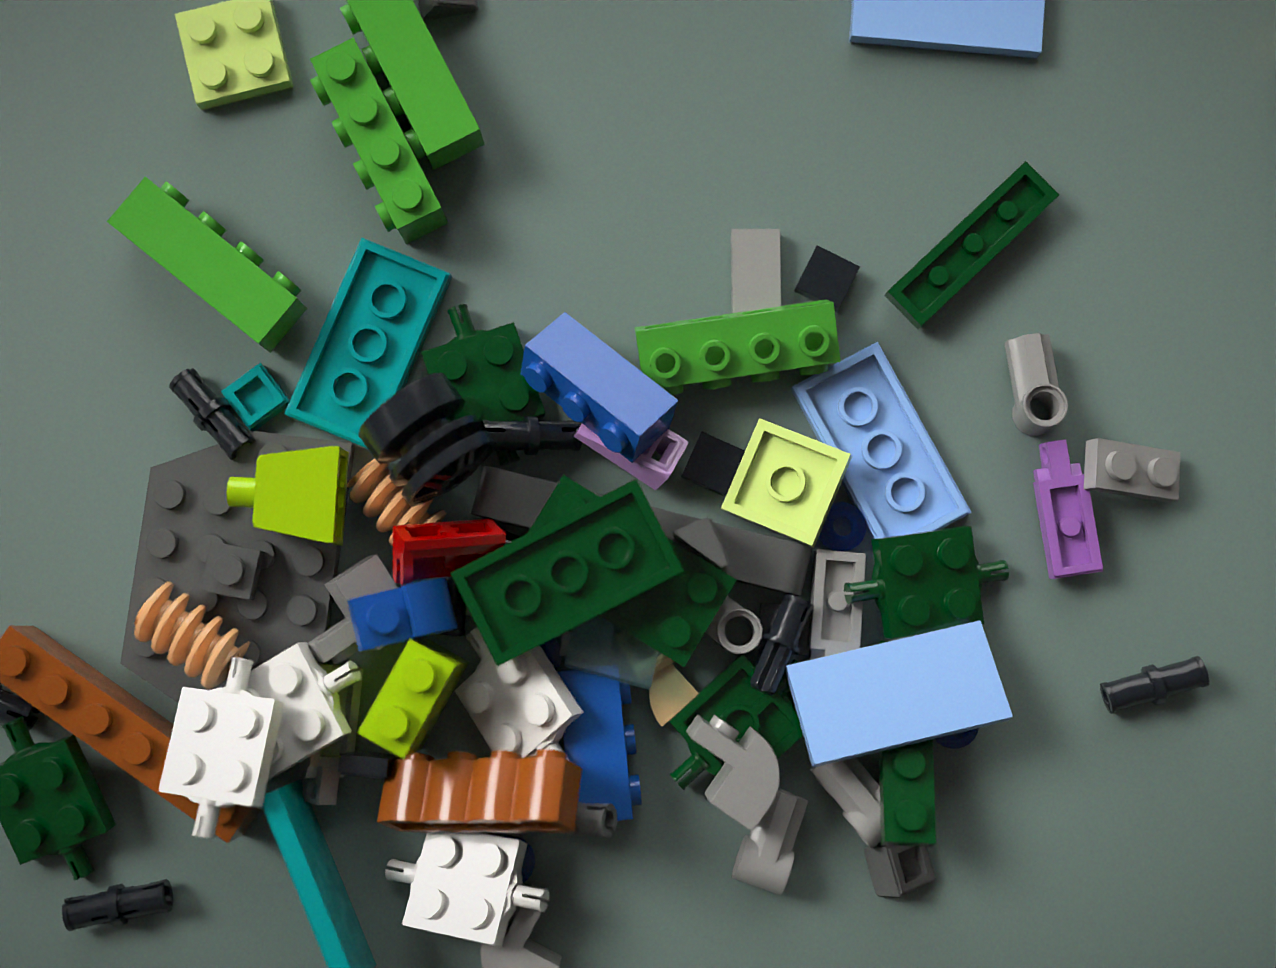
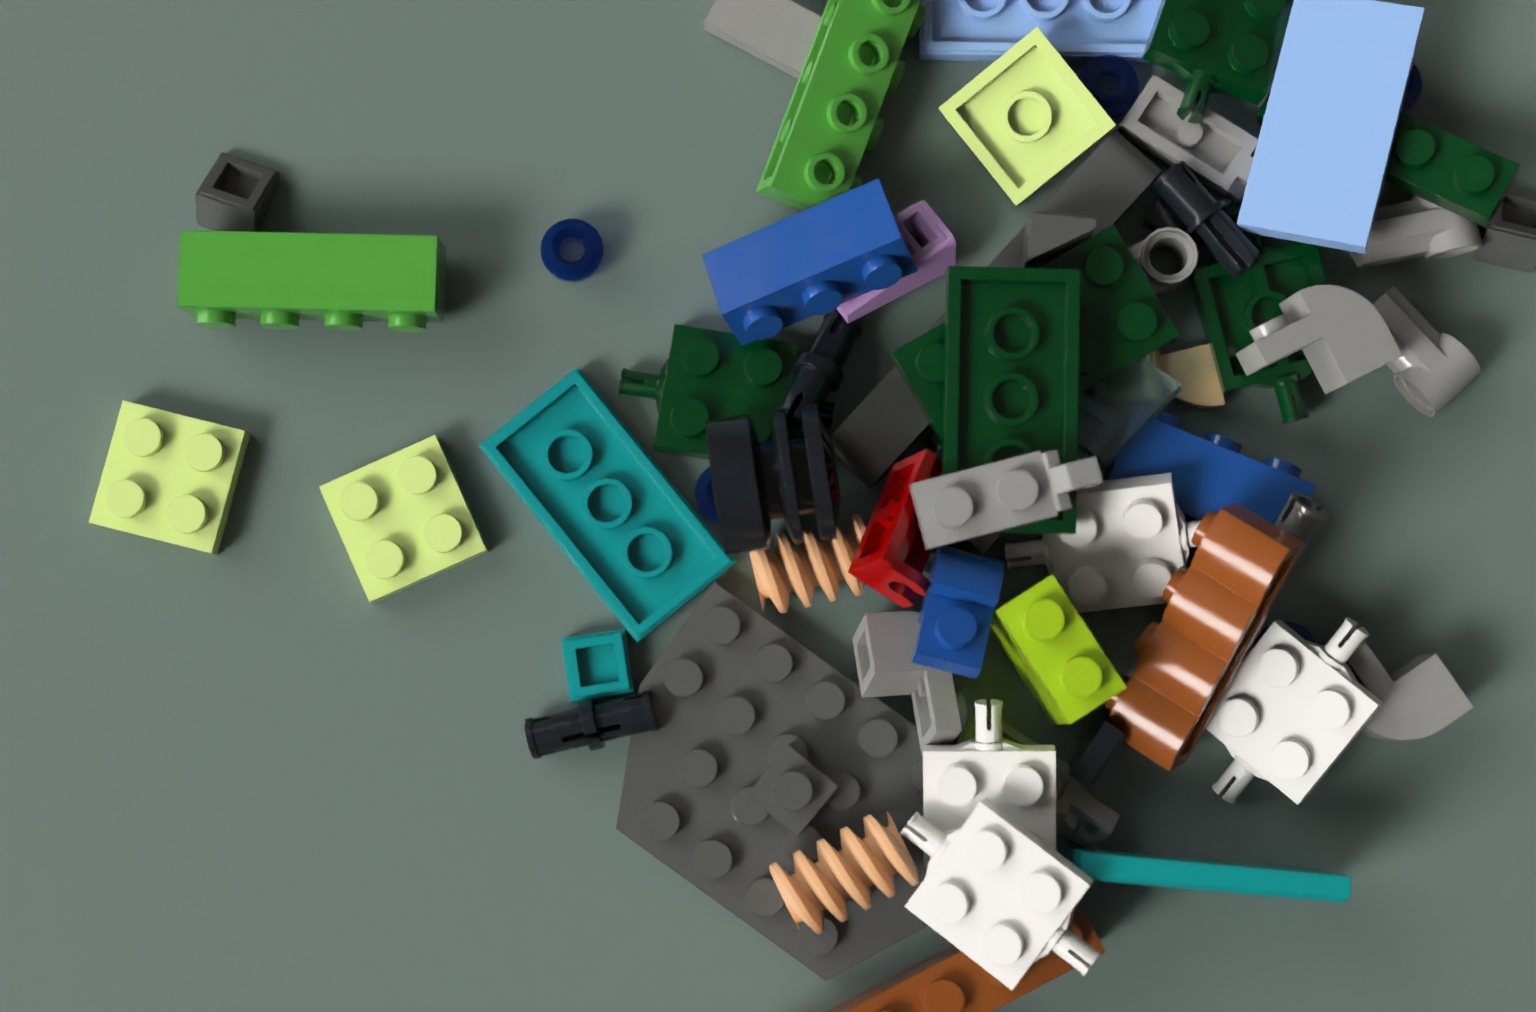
camera: 60 degrees left, 0 degrees up
(207, 263) = (414, 634): bright green brick -> none
(287, 216) = (403, 519): none -> yellowish green plate
(297, 493) = (747, 667): lime torso -> none
(383, 149) = (378, 363): bright green brick -> none
(491, 598) = (998, 496): none -> light grey hinge
(528, 213) = (572, 231): none -> clear blue plate
(713, 464) = (959, 189): black tile -> none

